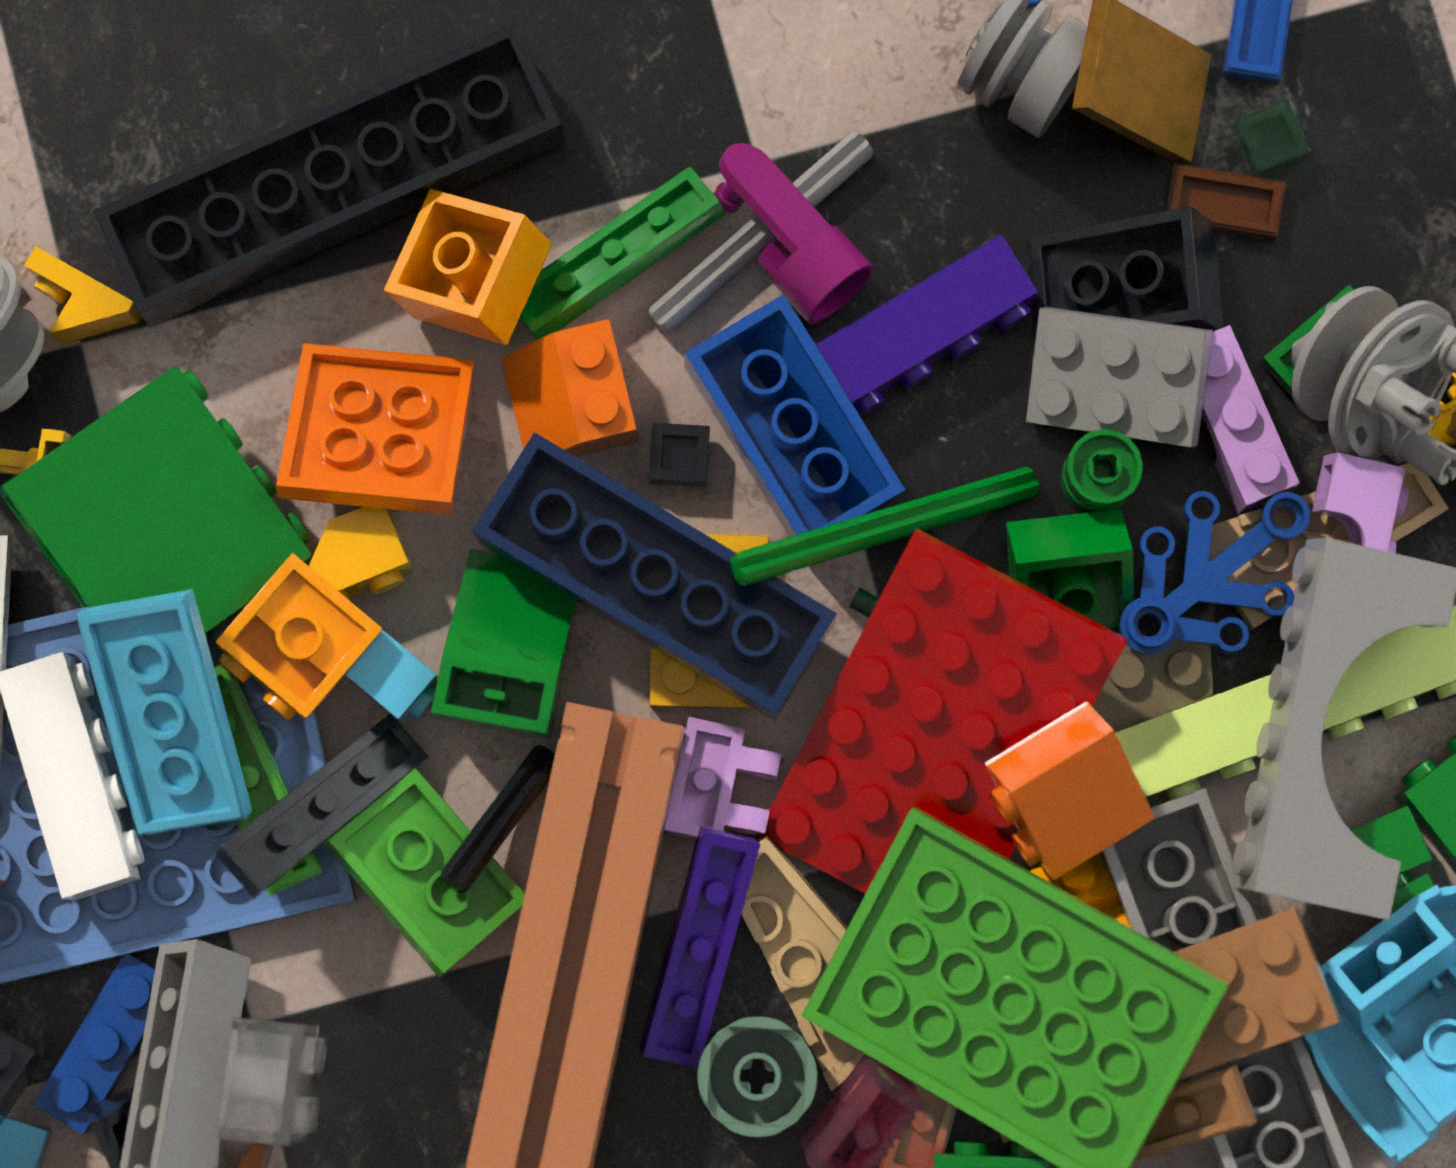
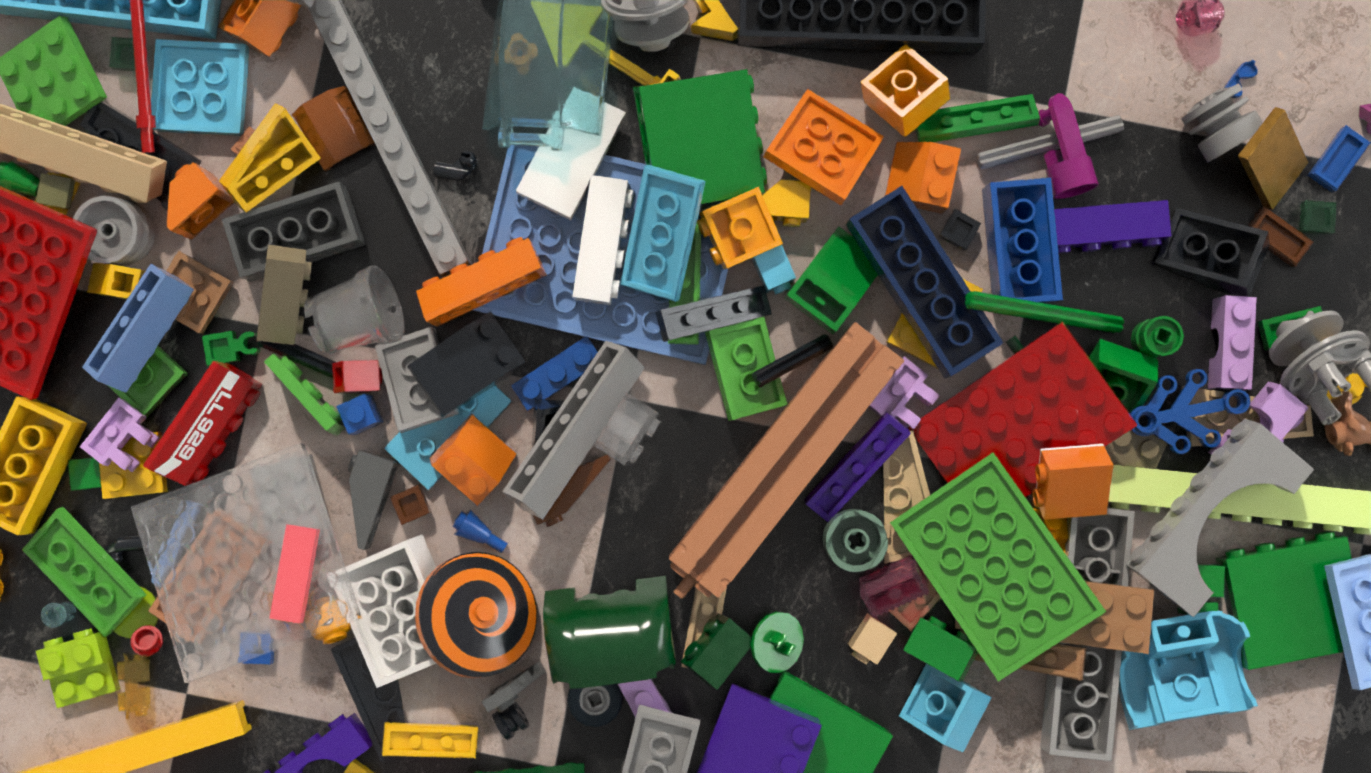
camera: 25 degrees right, 5 degrees up
(1119, 376) = (1190, 295): light grey plate -> none

